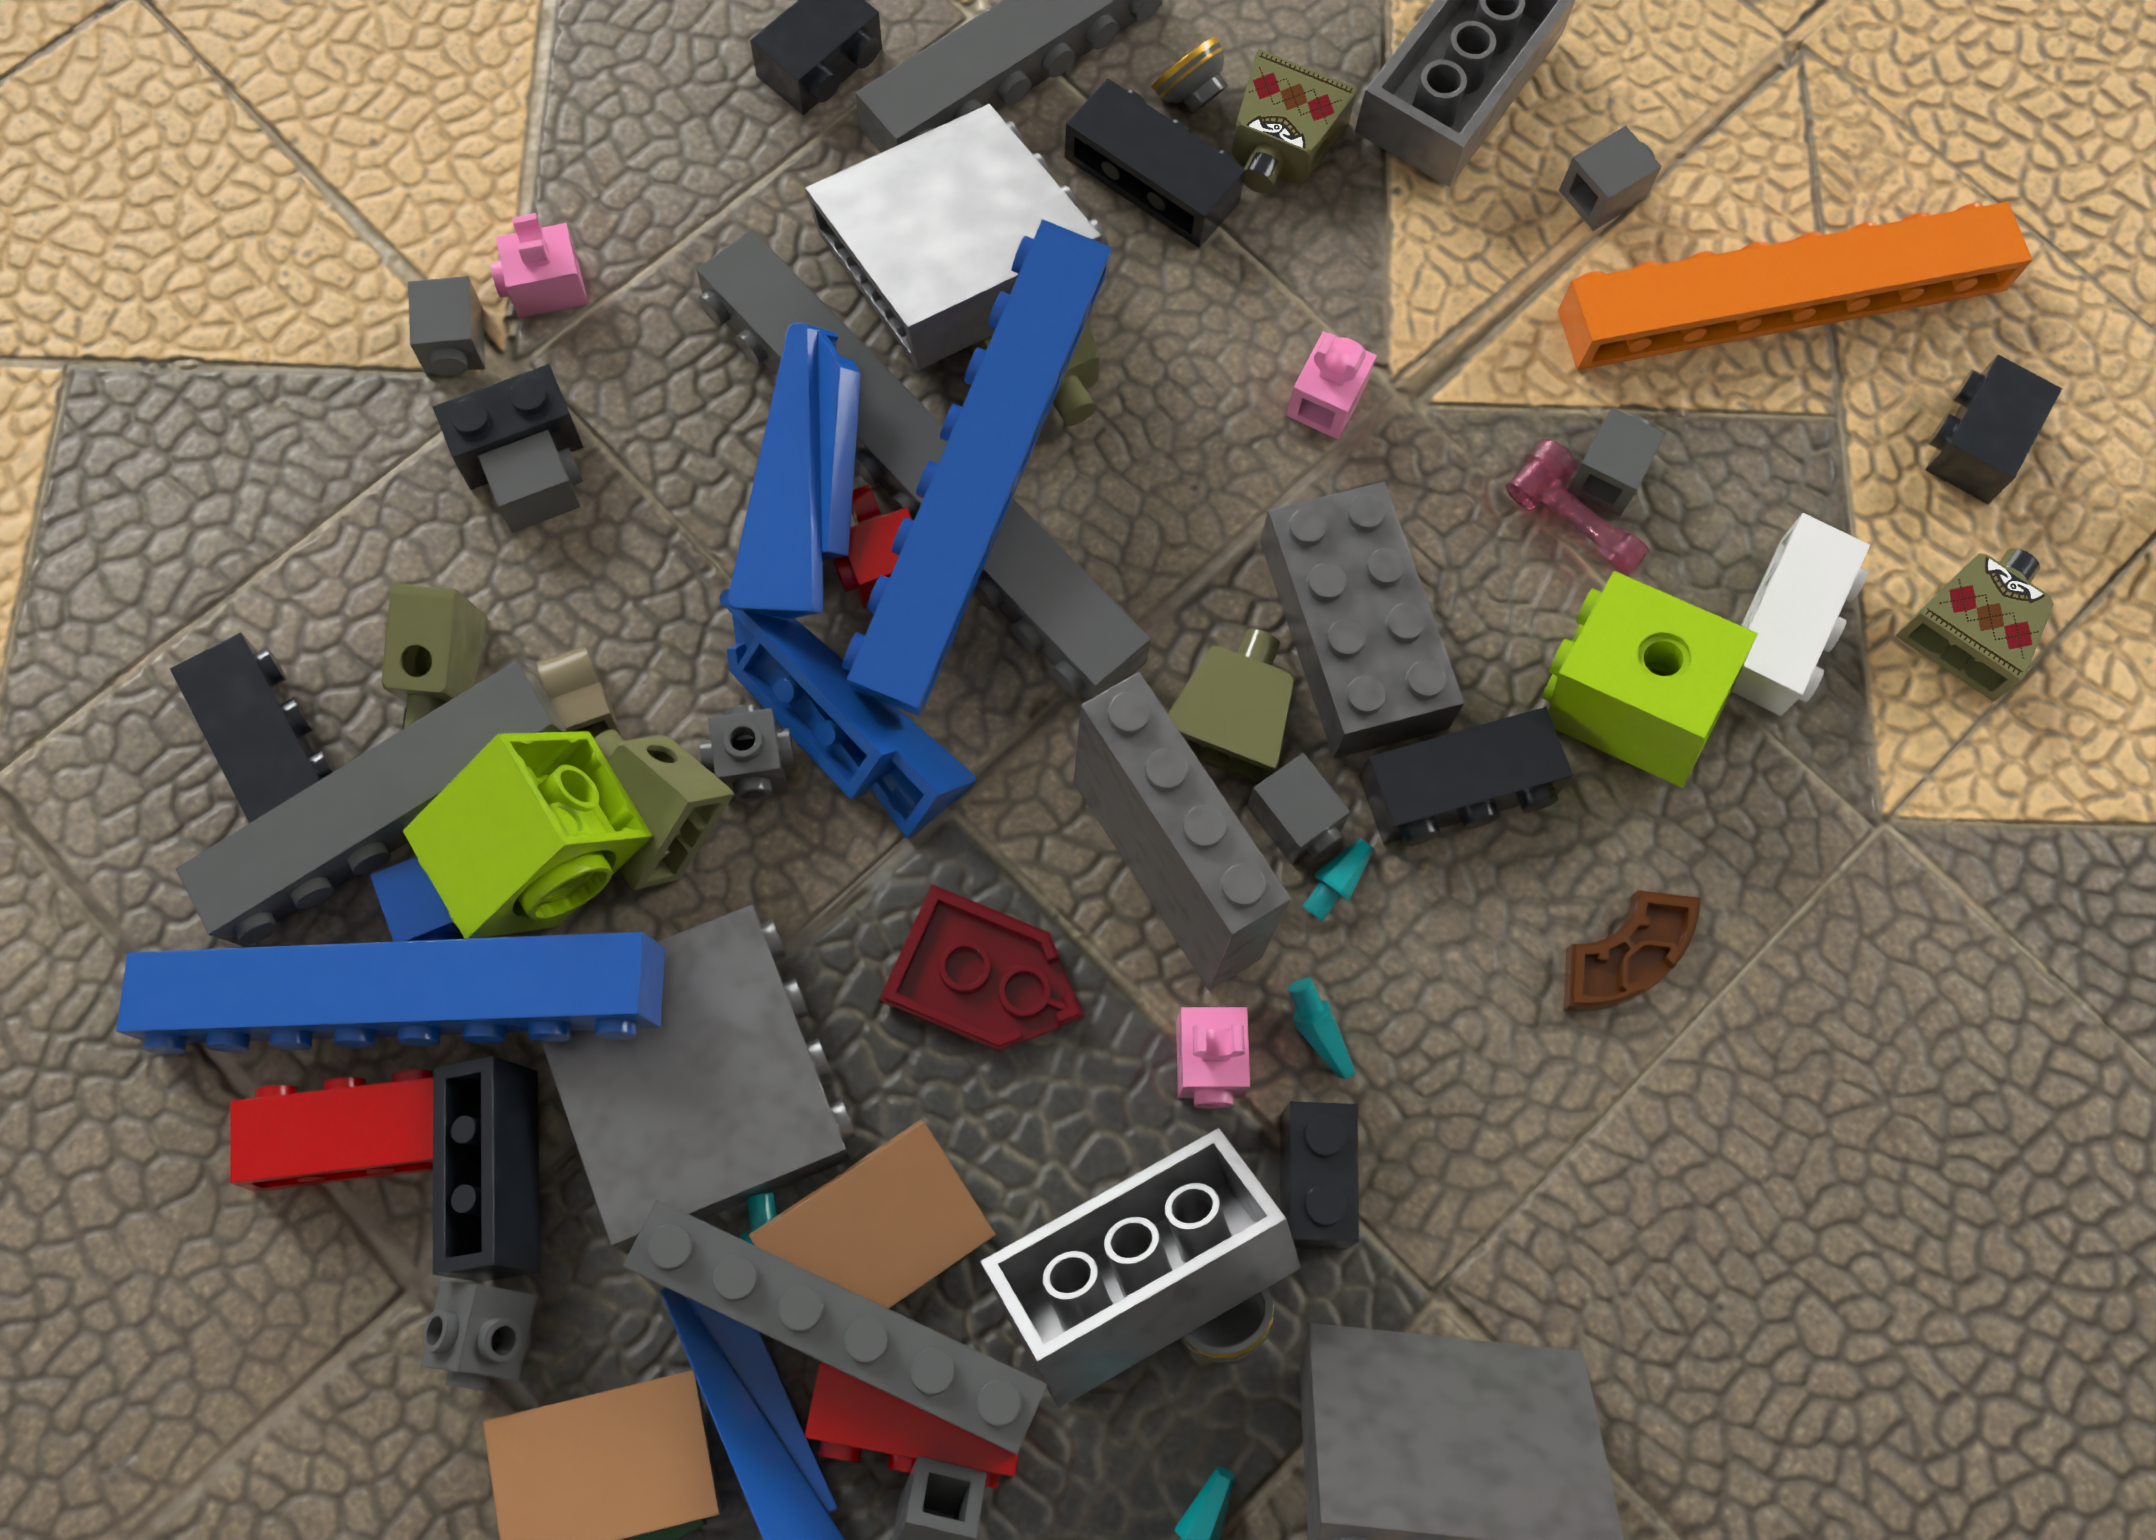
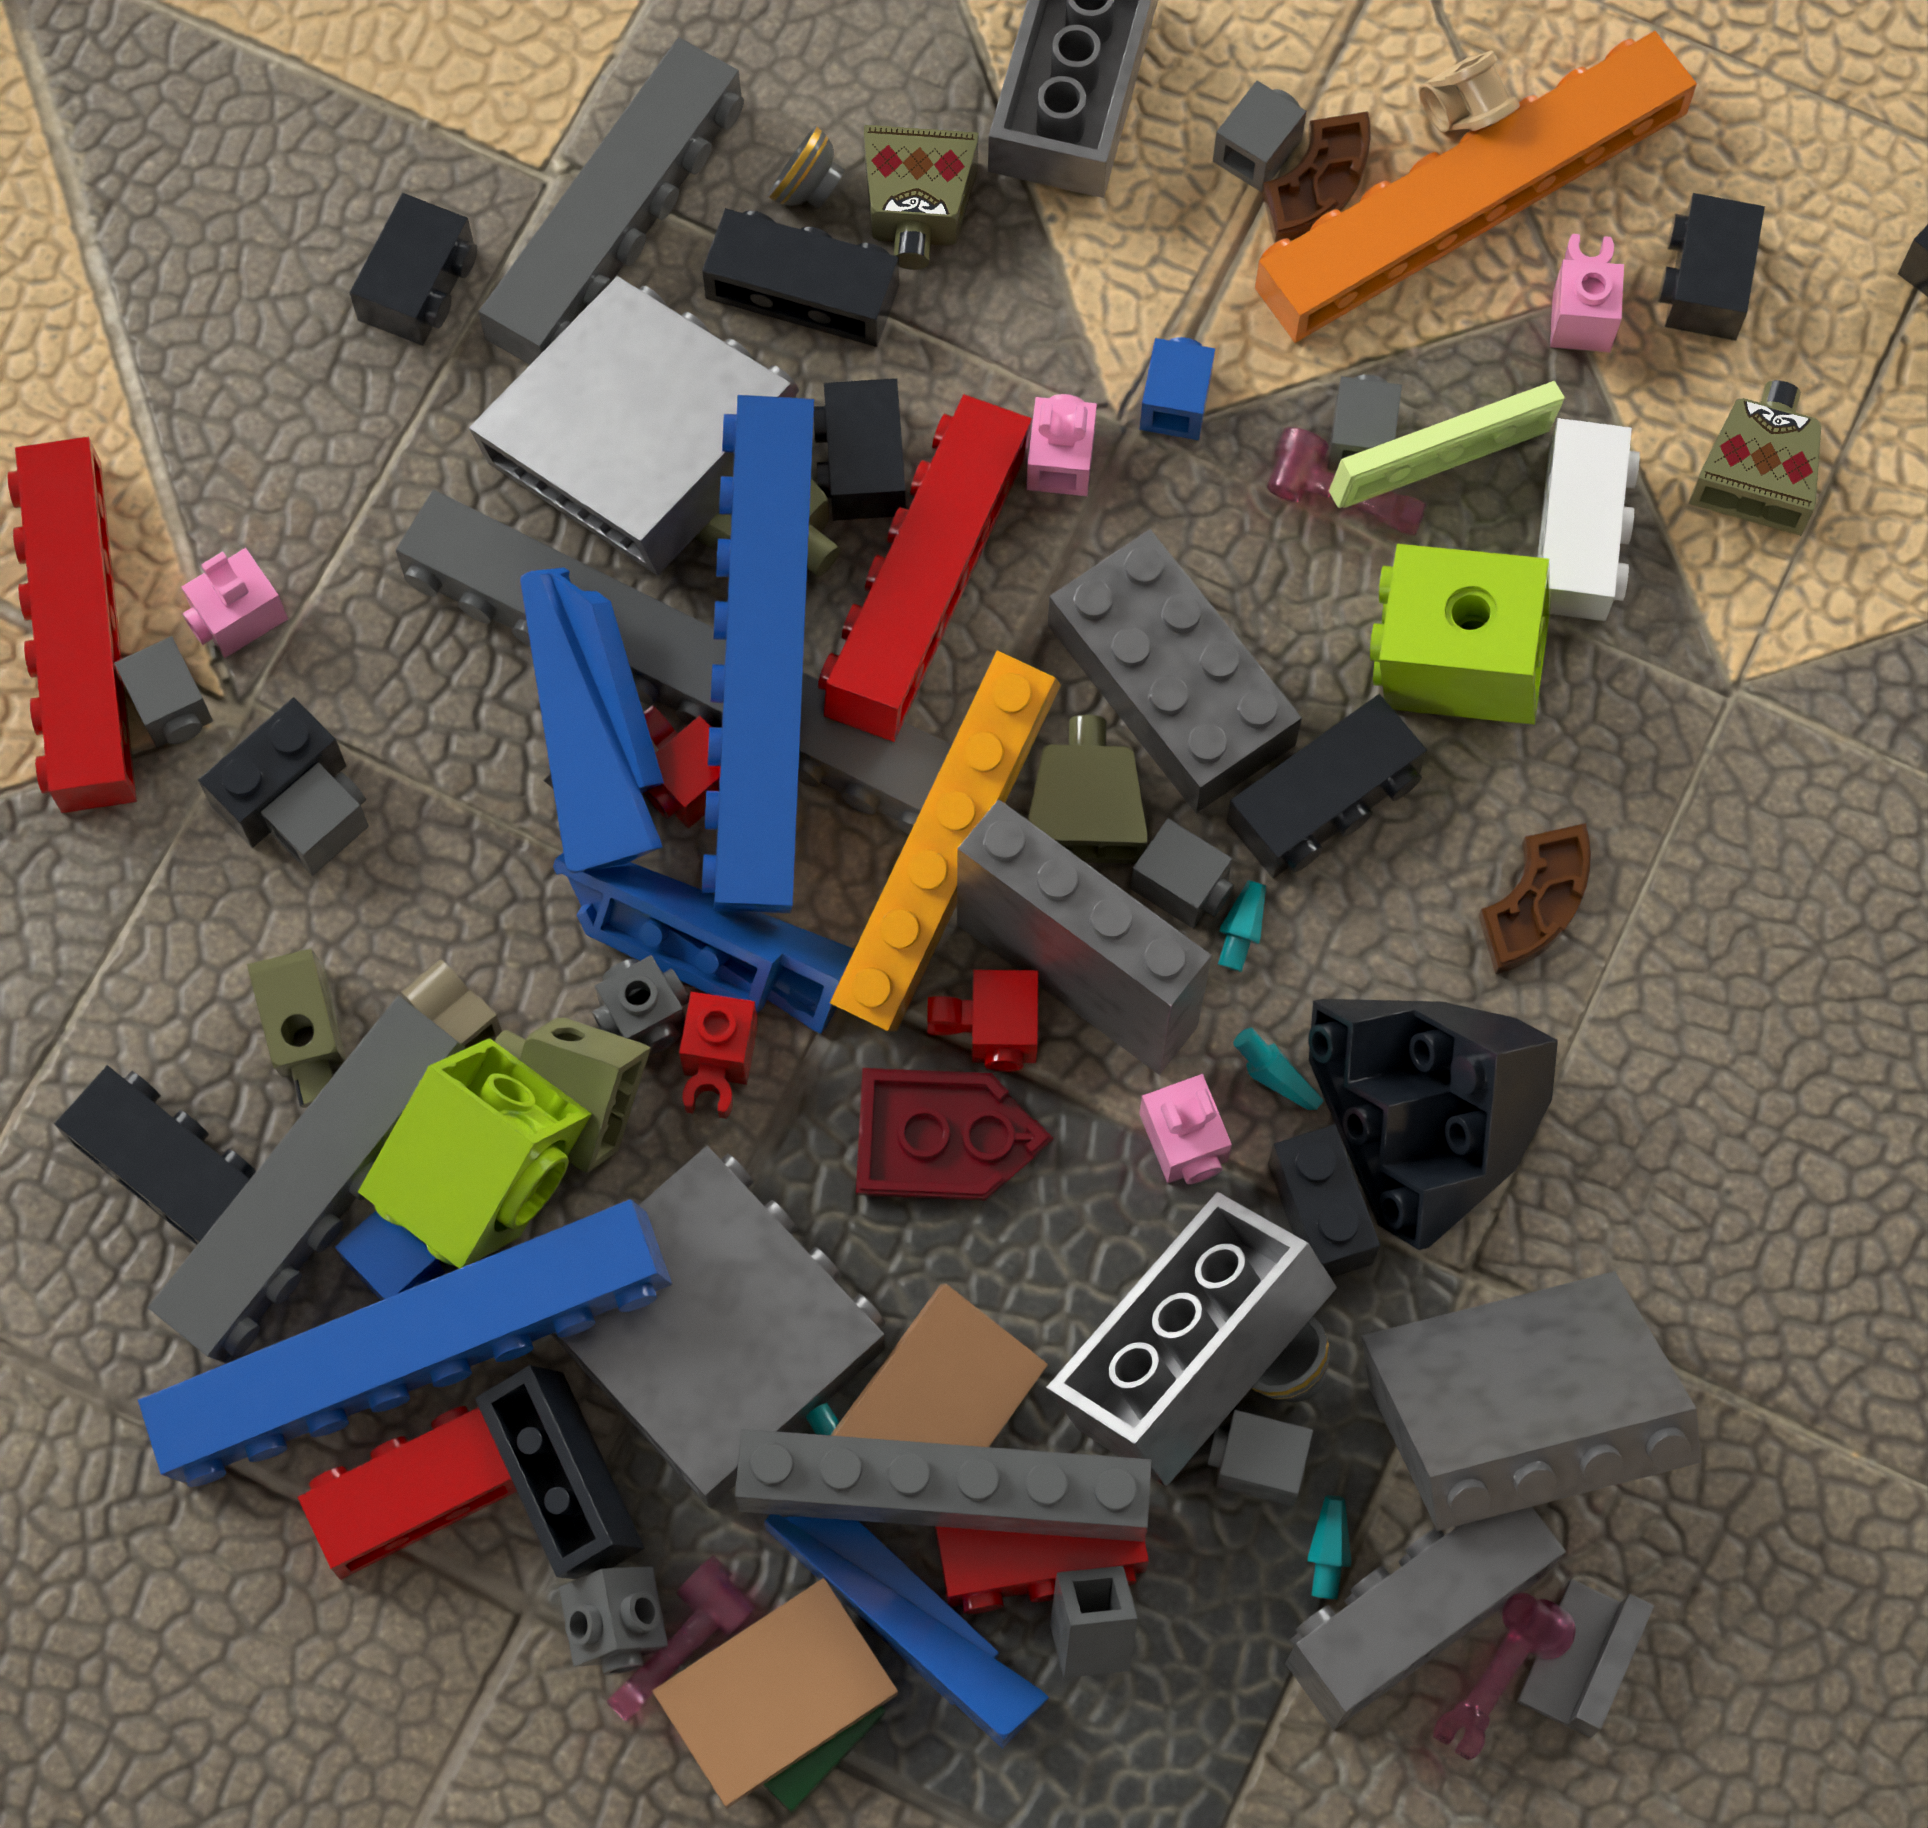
camera: 15 degrees left, 0 degrees up
(393, 240) = (73, 626): none -> red brick
(585, 1354) = (715, 1605): none -> clear pink brick
(802, 814) = (717, 1047): none -> red brick
(1042, 737) = (924, 879): none -> light orange brick
(1074, 883) = (999, 1017): none -> red brick
(1150, 327) = (863, 449): none -> black brick
(1162, 448) = (926, 567): none -> red brick
(1166, 1407) = (1260, 1457): none -> dark grey brick
(1455, 370) = (1177, 388): none -> blue brick
(1458, 1116) = (1429, 1103): none -> black brick
(1656, 233) = (1323, 177): none -> reddish brown tile
(1687, 502) = (1446, 445): none -> yellowish green tile
(1813, 201) = (1467, 95): none -> tan piece
(1864, 419) = (1587, 299): none -> bright pink brick

